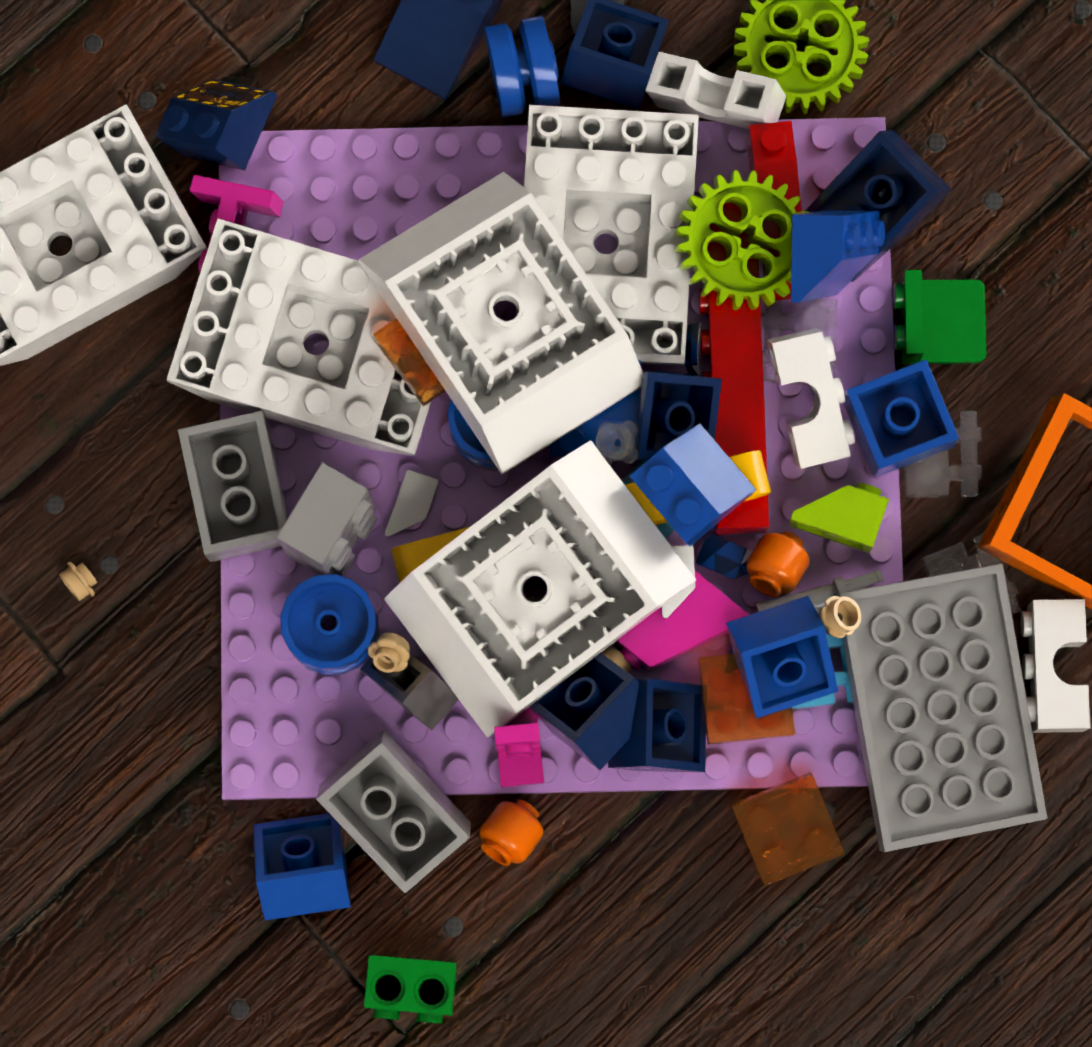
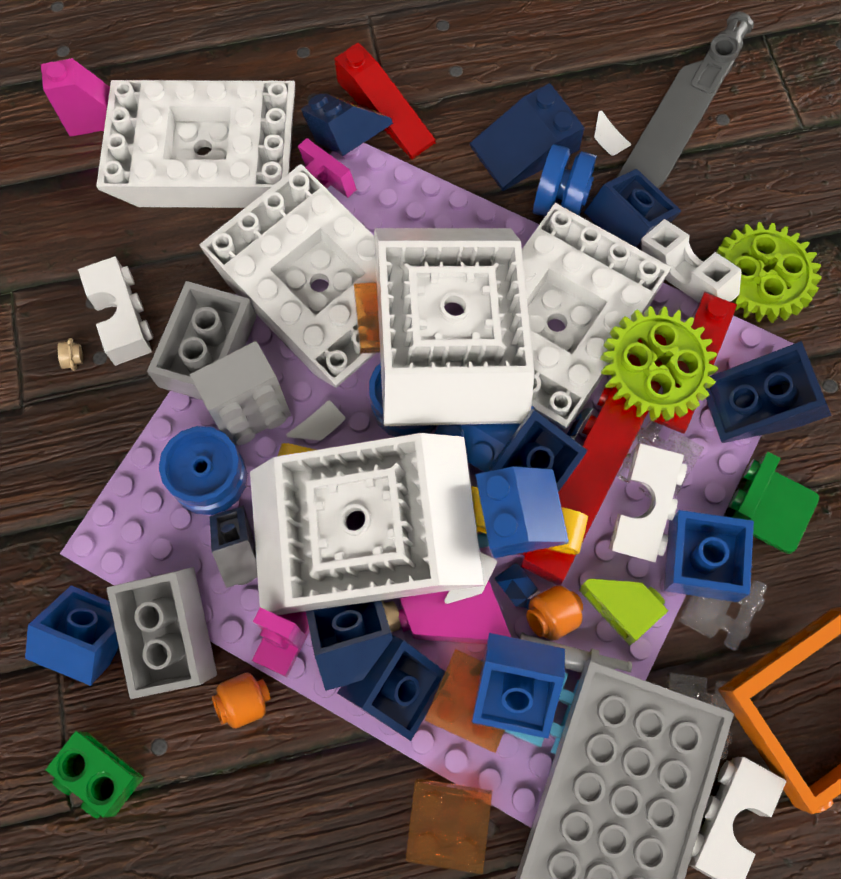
camera: 30 degrees right, 10 degrees down
(68, 476) = (125, 333): none -> white arch
(229, 58) = (372, 87): none -> red slope
(390, 652) = (229, 512): tan plate -> none
(606, 440) = (477, 444): clear plate -> none
(831, 250) = (722, 400): blue slope -> none
(840, 616) = (582, 679): tan plate -> none

